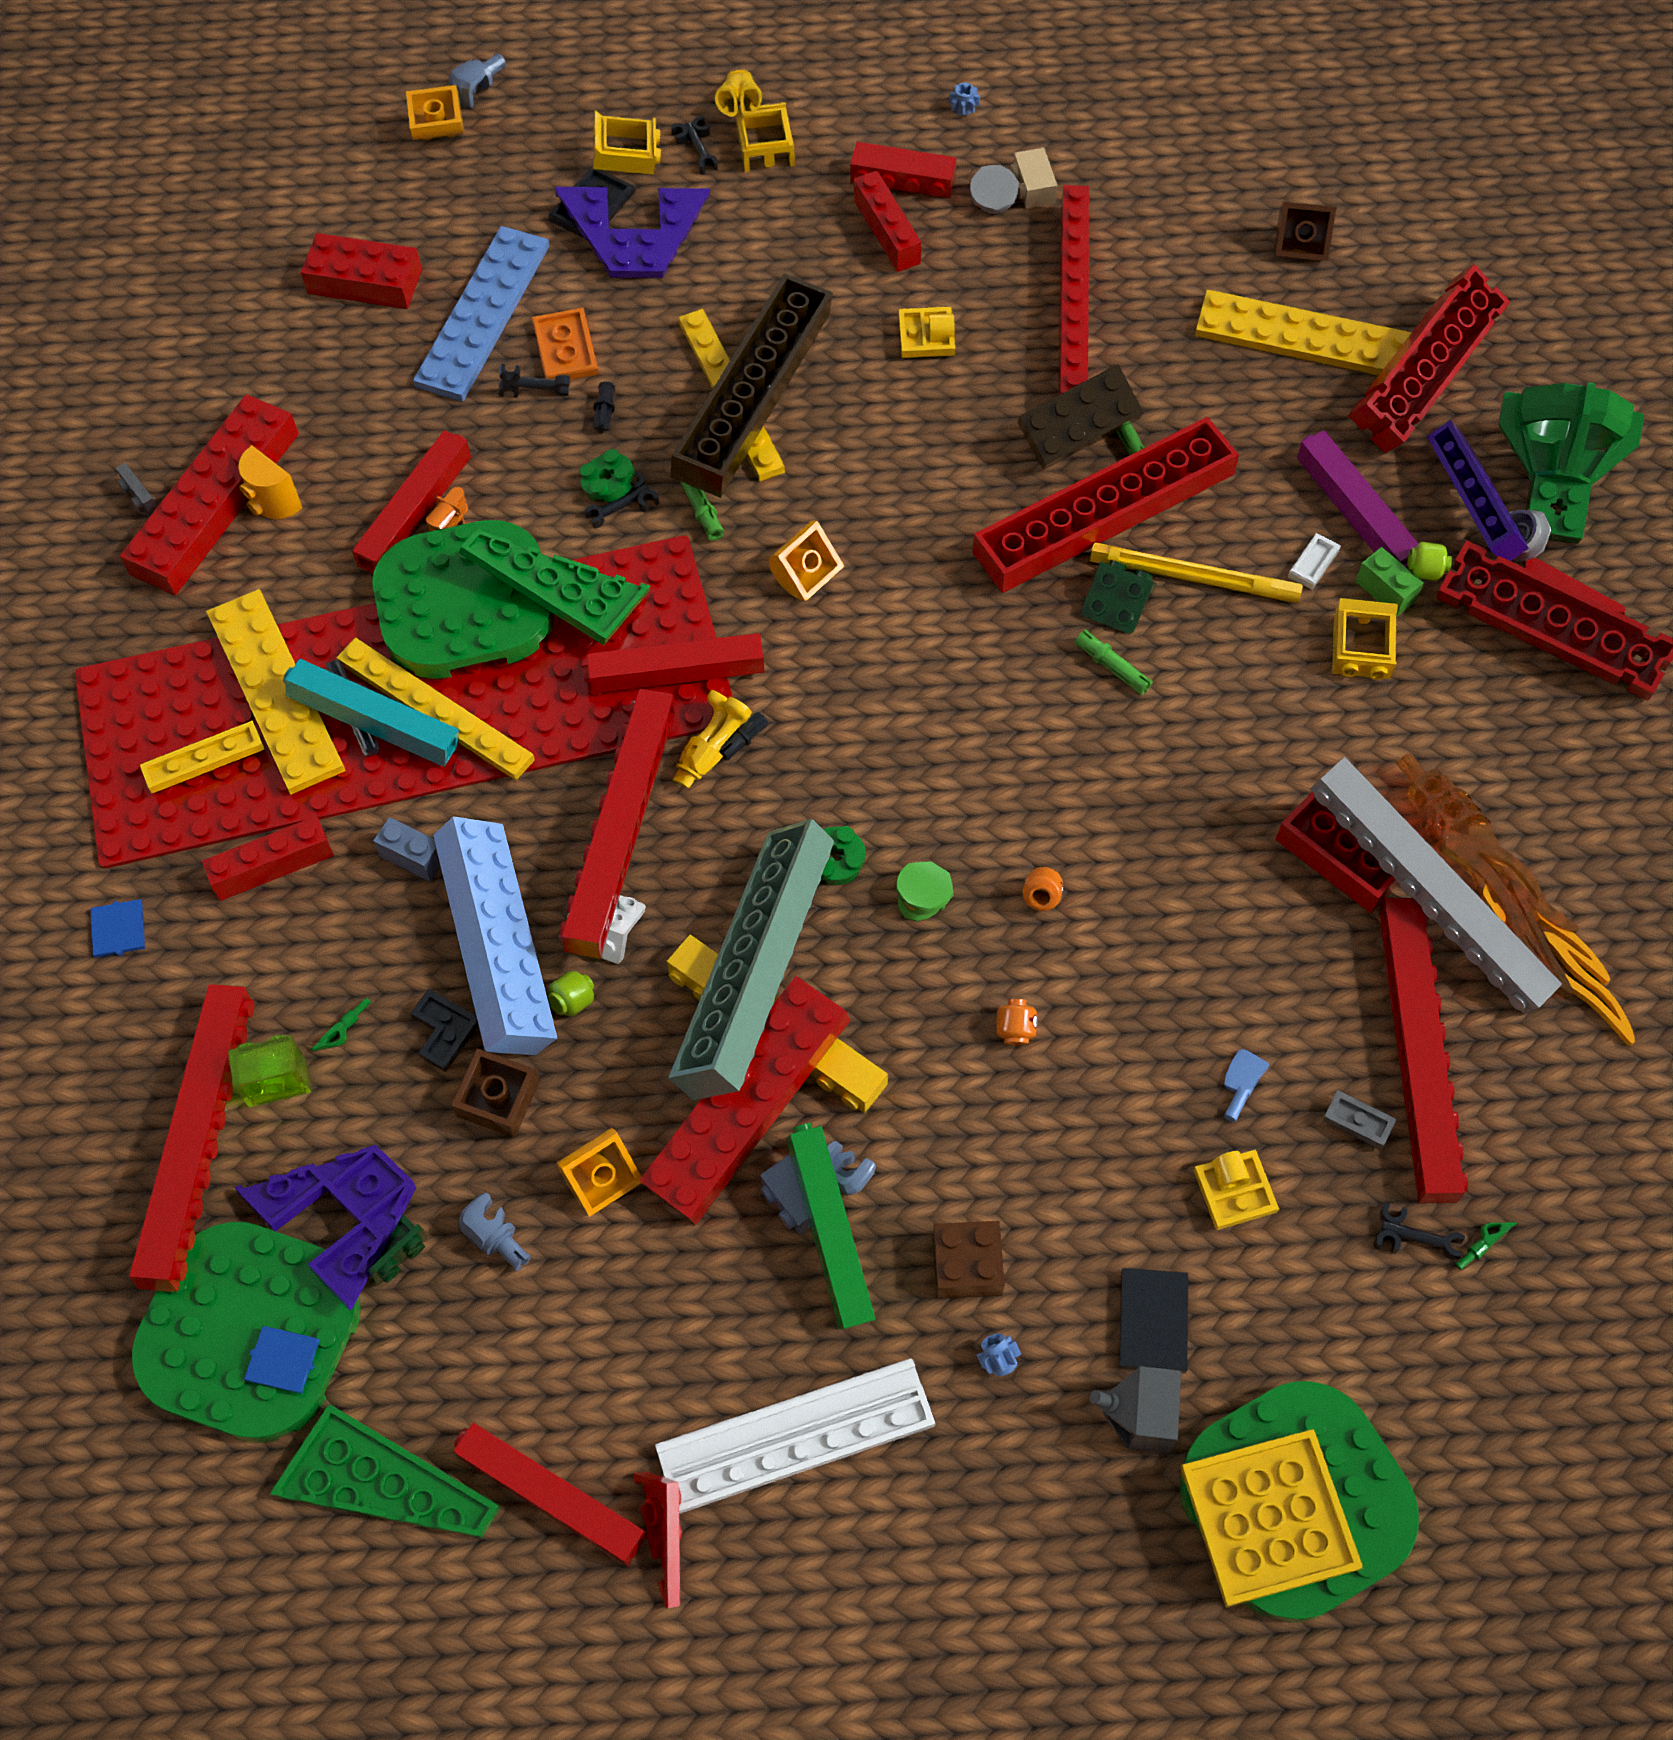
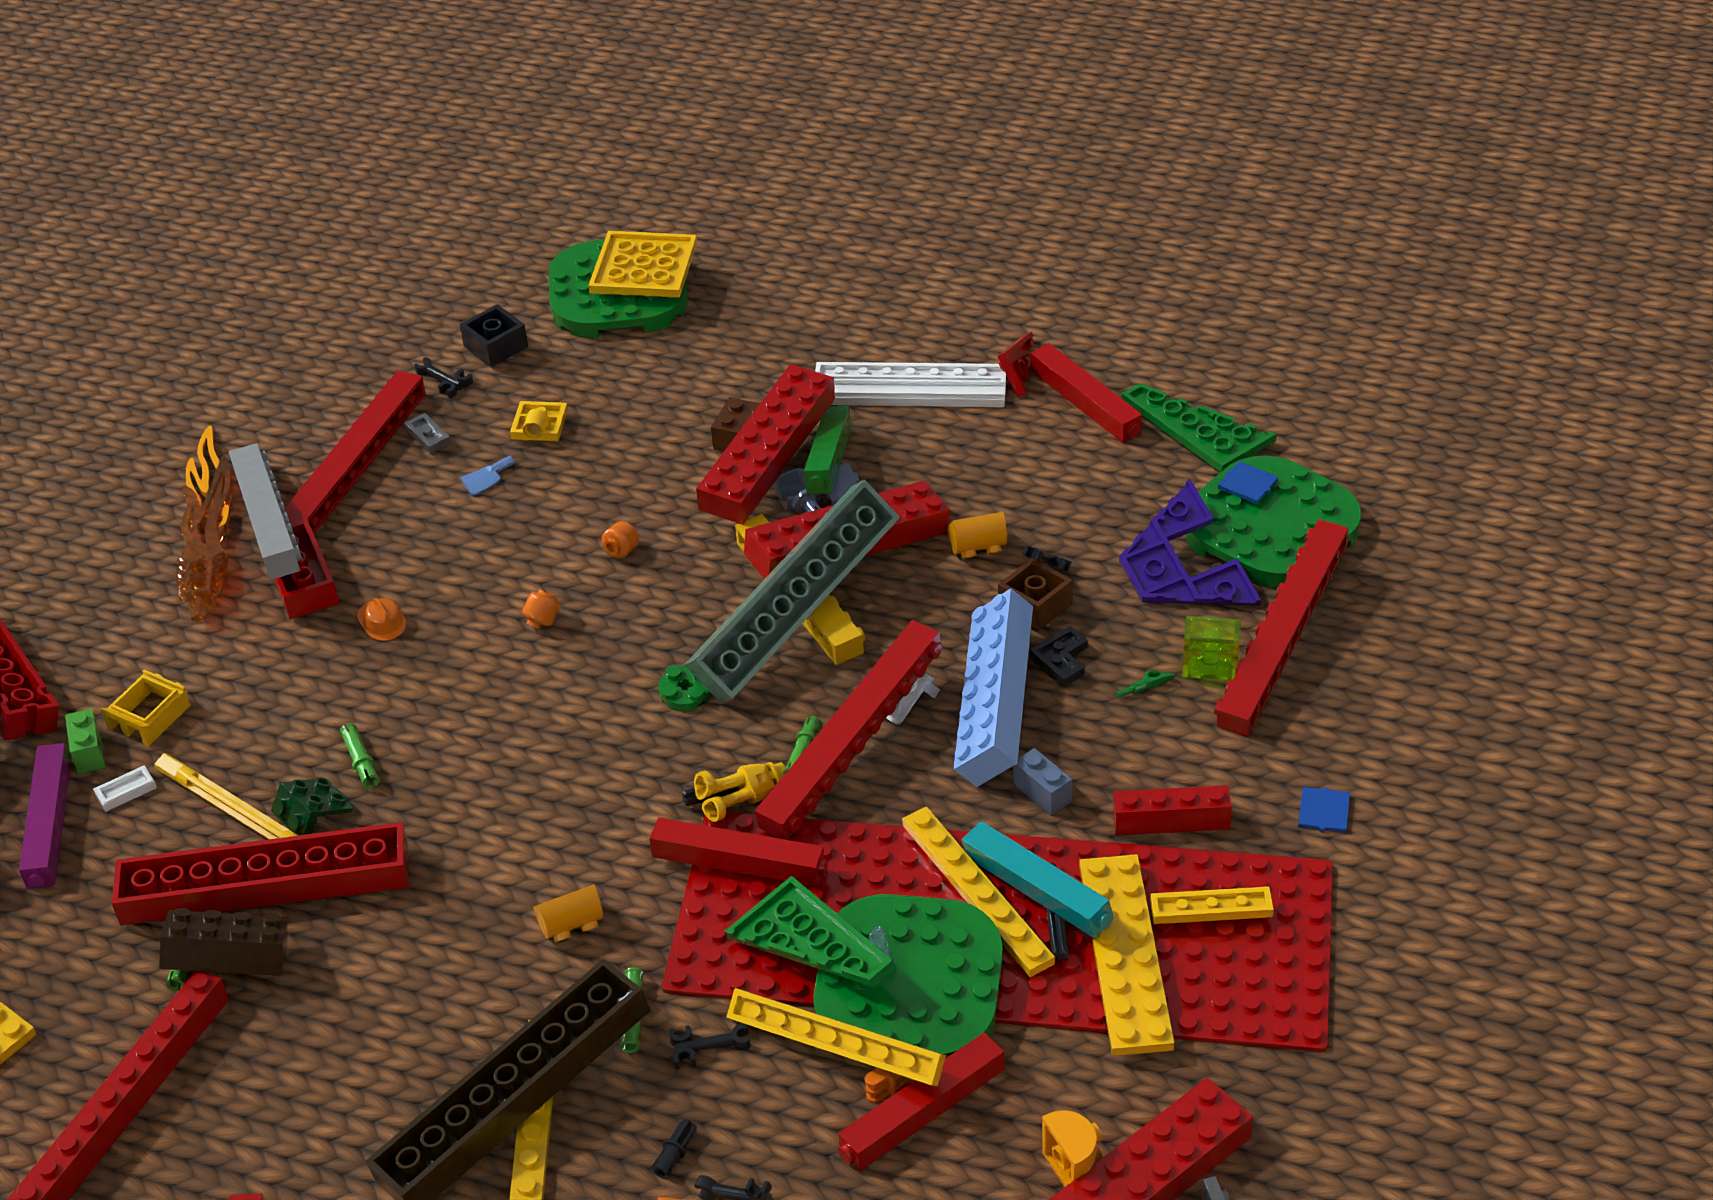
camera: 155 degrees left, 20 degrees down
(404, 1242) = (1140, 510): dark green bracket -> none
(492, 592) = (878, 938): none -> clear light blue piece
(493, 1234) = (1074, 523): sand blue piece -> none
(494, 509) = (837, 1037): none -> yellow plate
(498, 1167) = (1046, 557): none -> black bar
(571, 993) = (953, 646): lime head -> none
(613, 464) = (709, 1047): green plate -> none
(673, 821) = (804, 738): none -> bright green pin
(903, 1196) = (765, 444): none -> red brick
(923, 890) = (632, 637): bright green hat -> none
(926, 332) = (292, 1116): yellow plate -> none
(998, 1354) = (753, 387): medium blue gear -> none
(1144, 1409) = (678, 327): dark grey piece -> none
(1153, 1319) = (642, 380): black tile -> none
(1217, 838) = (382, 619): none -> orange piece
(1392, 1313) = (494, 335): none -> black brick
(1429, 561) = (45, 727): lime head -> none
(1478, 1249) = (400, 363): green hand -> none

